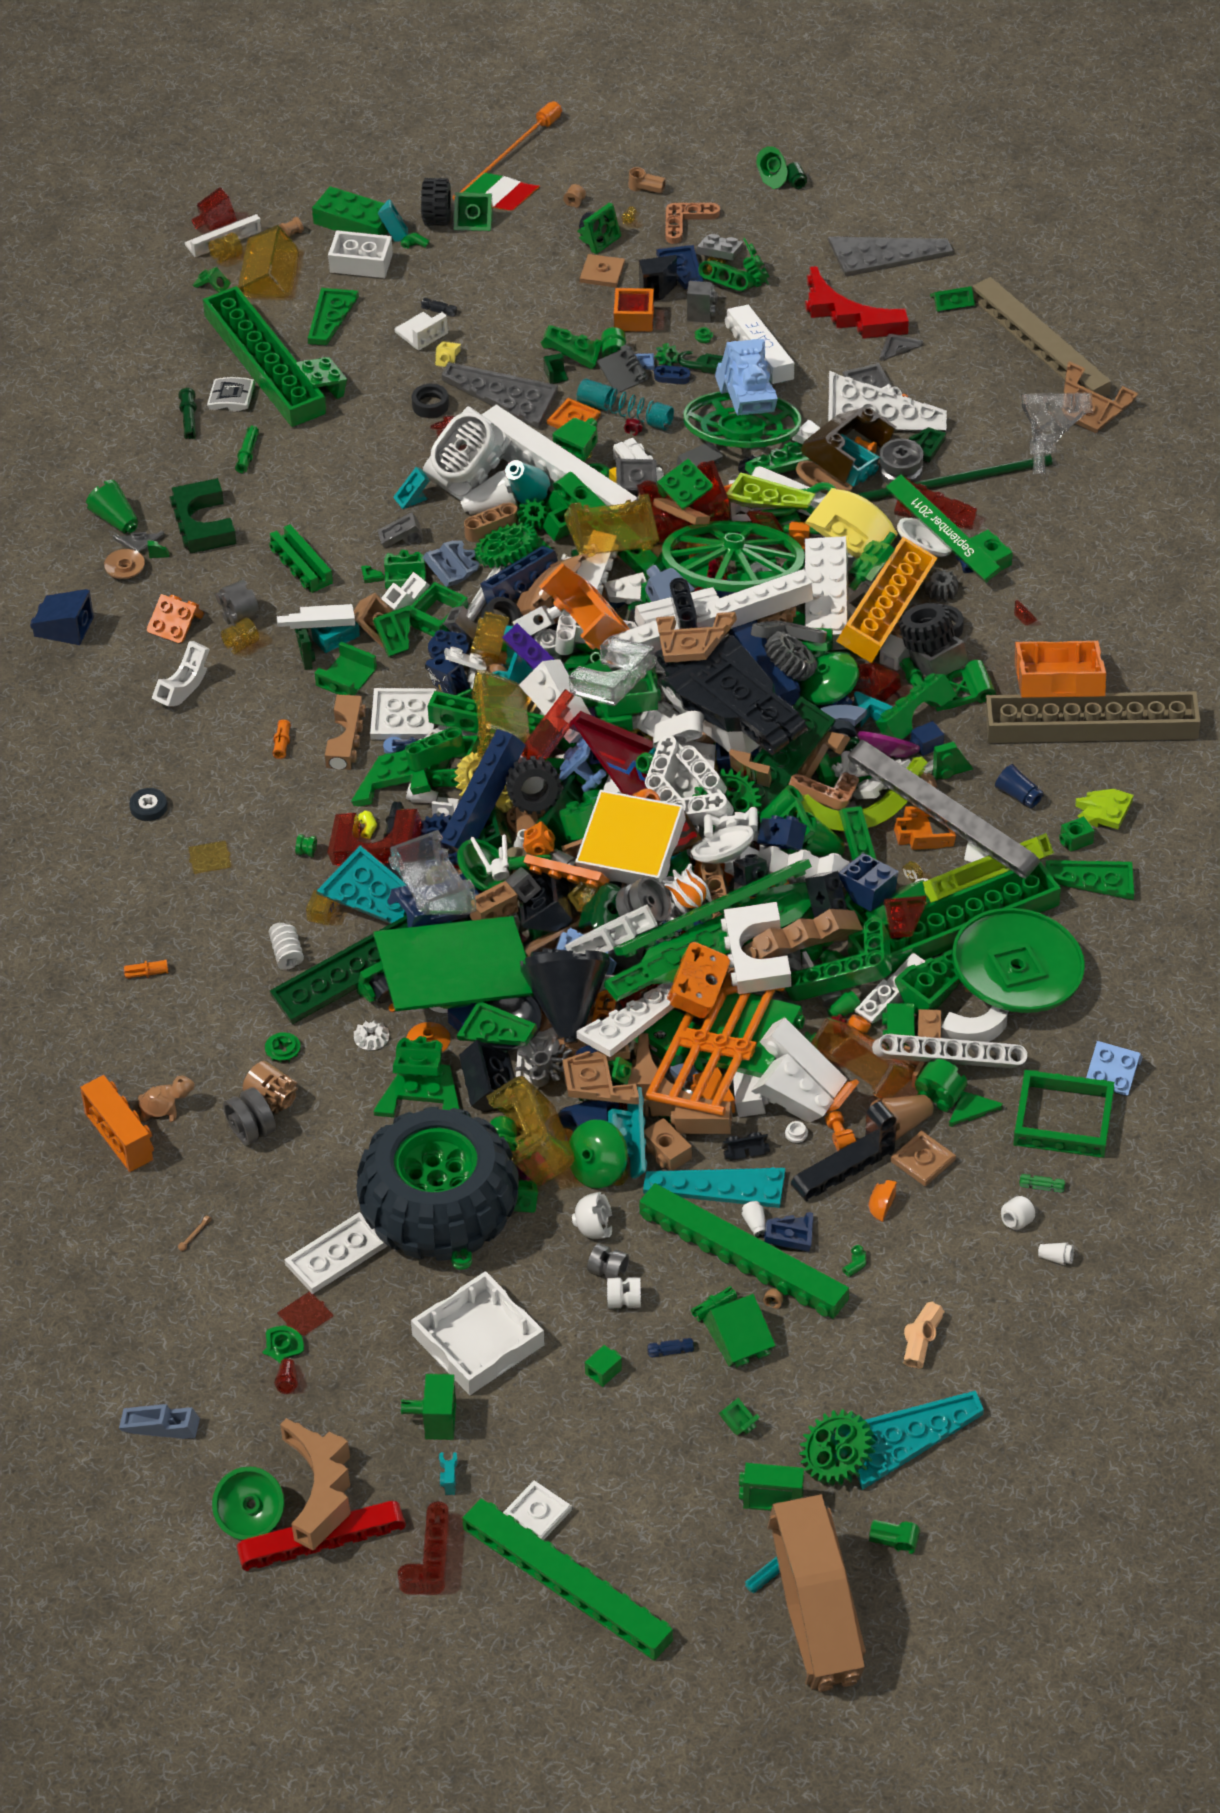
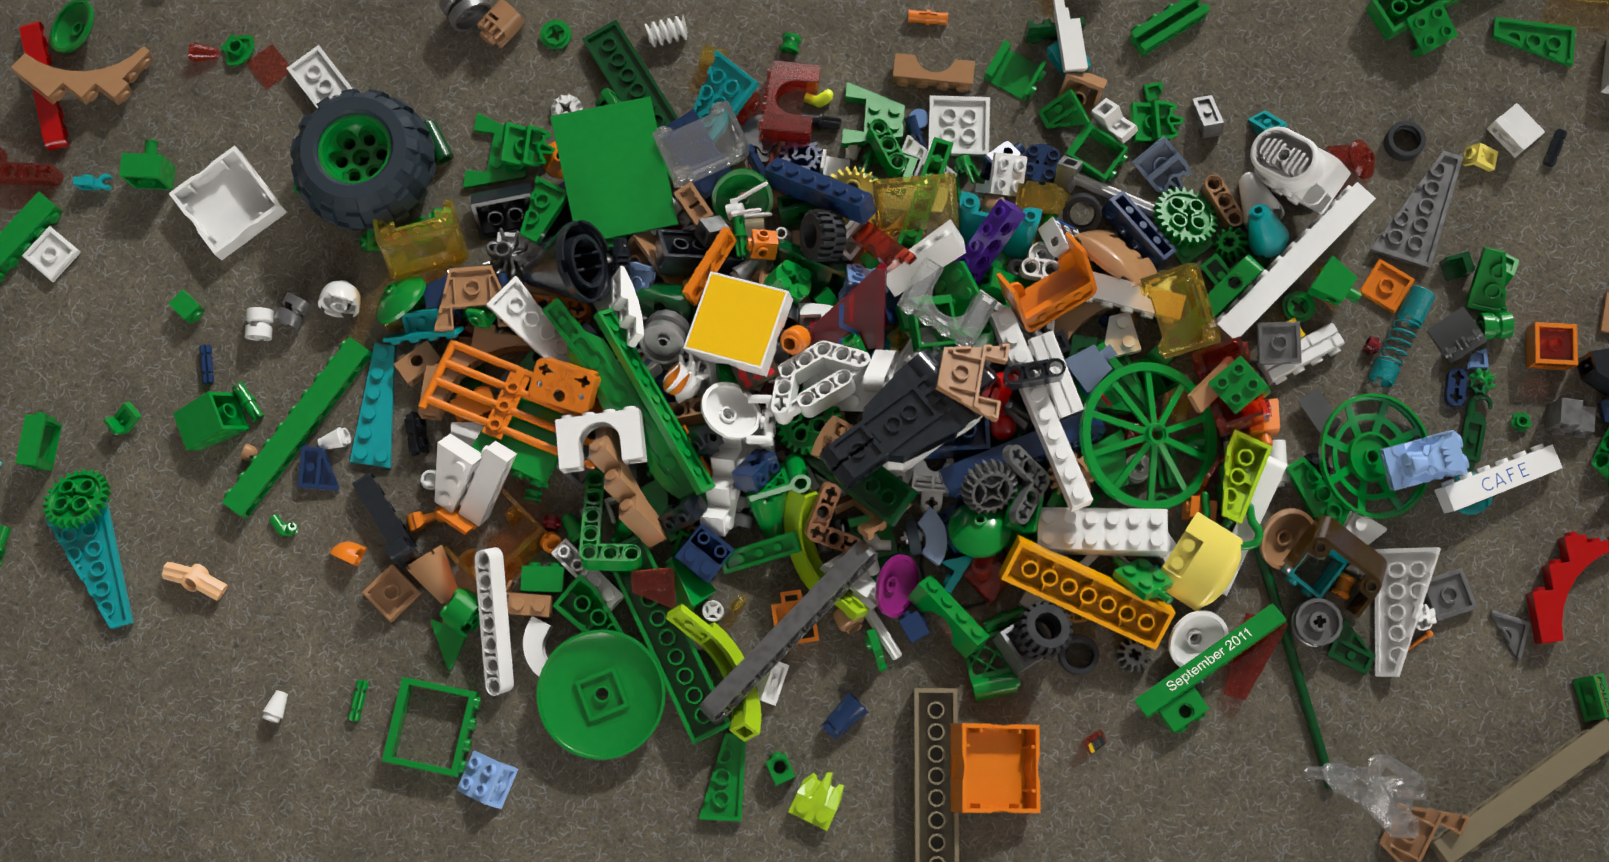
camera: 95 degrees right, 30 degrees up
(1018, 1213) = (320, 674): white head -> none

